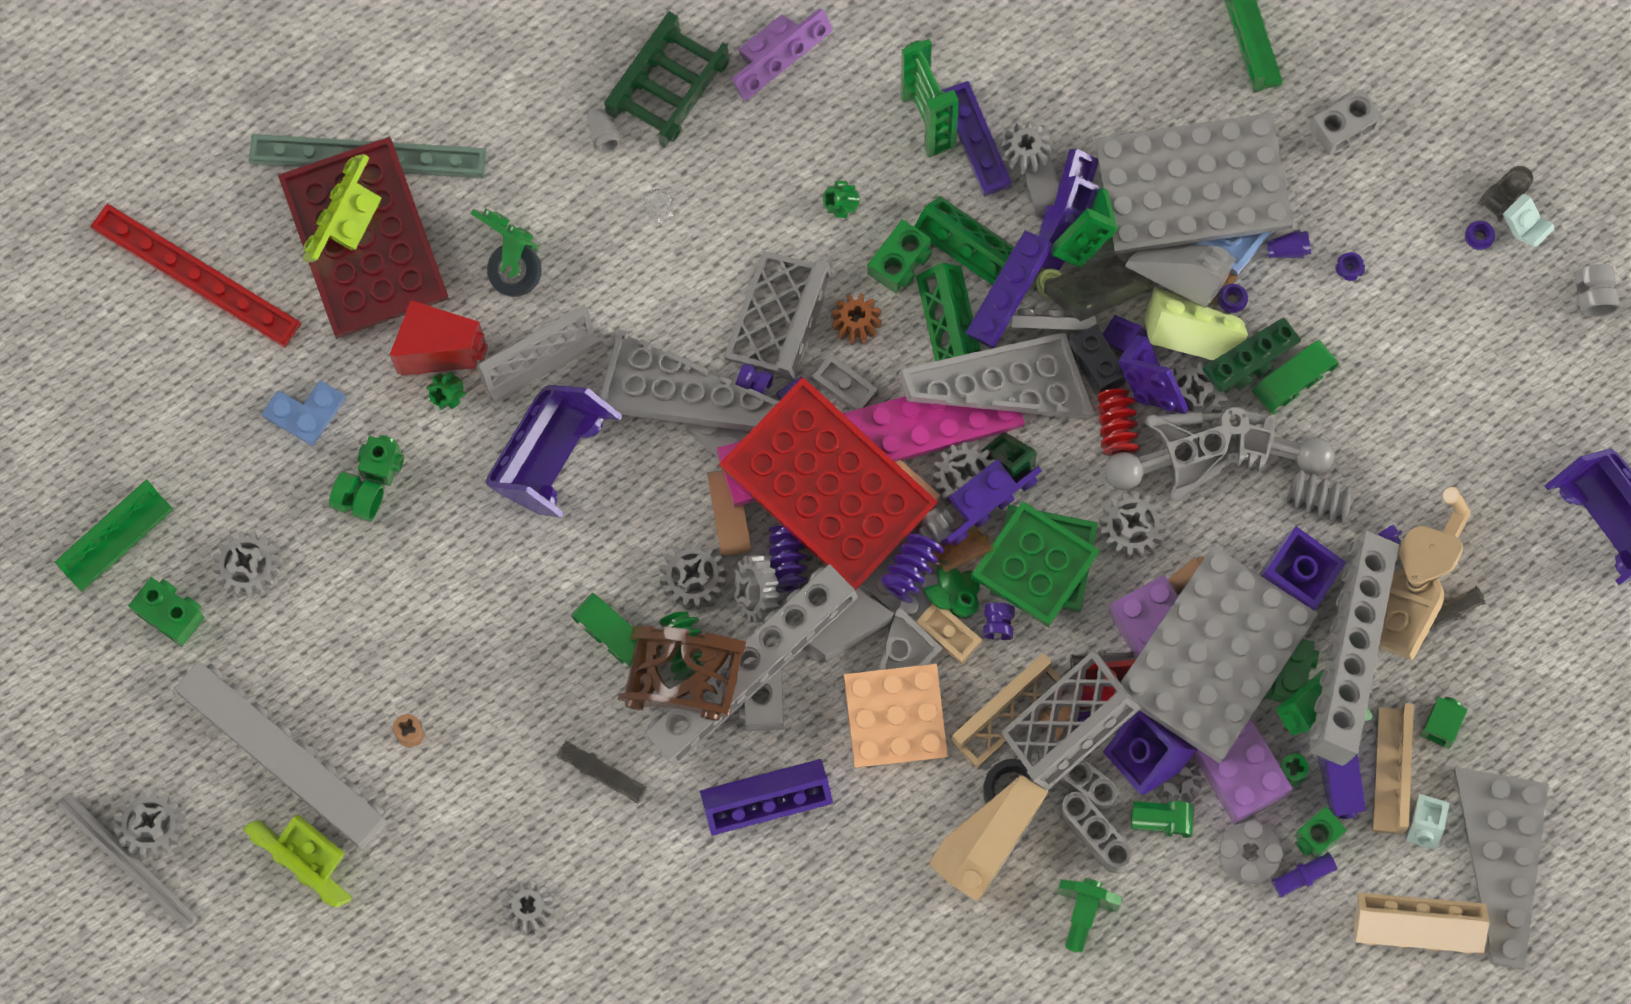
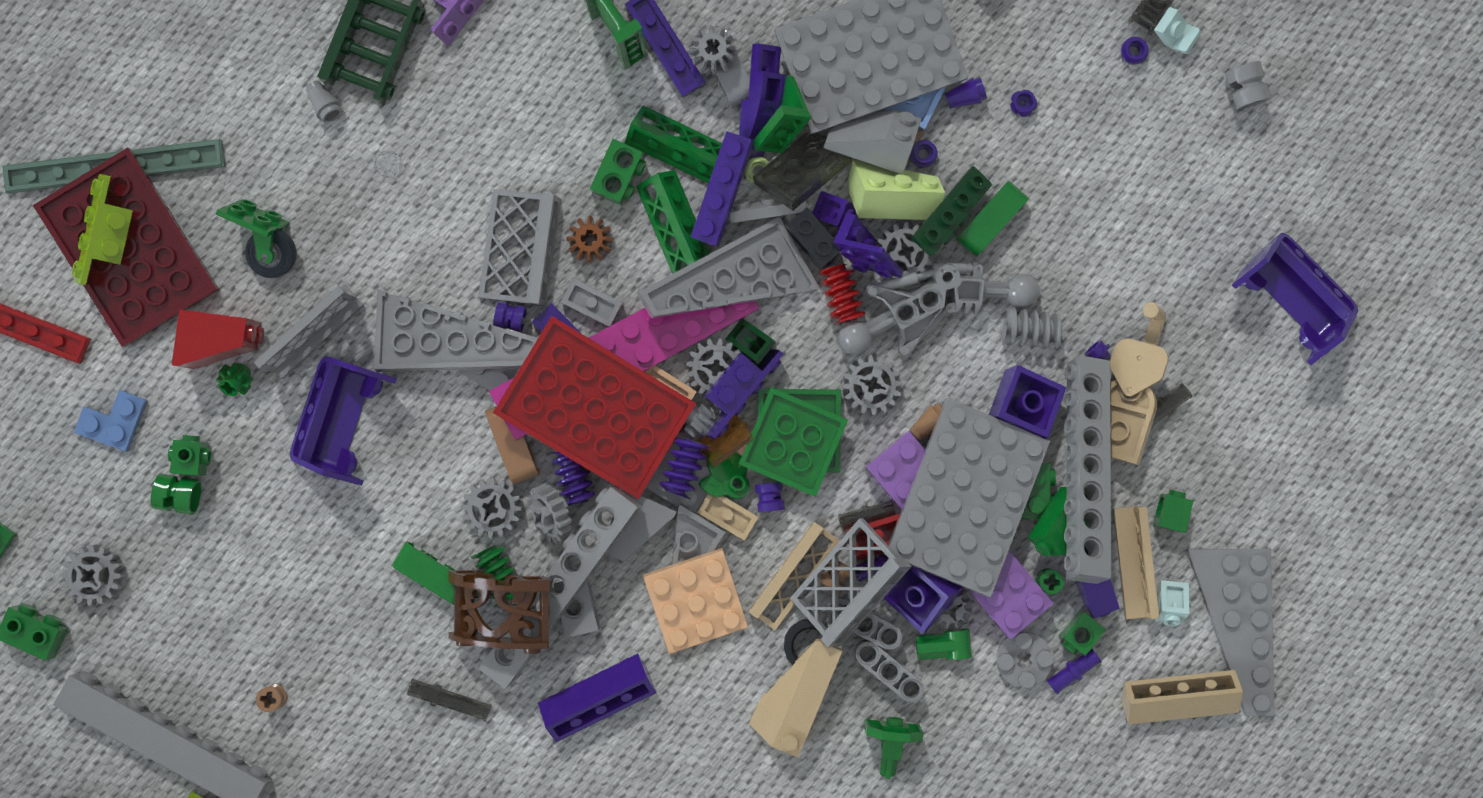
camera: 15 degrees left, 15 degrees up
(841, 199) = (553, 127): green gear -> none

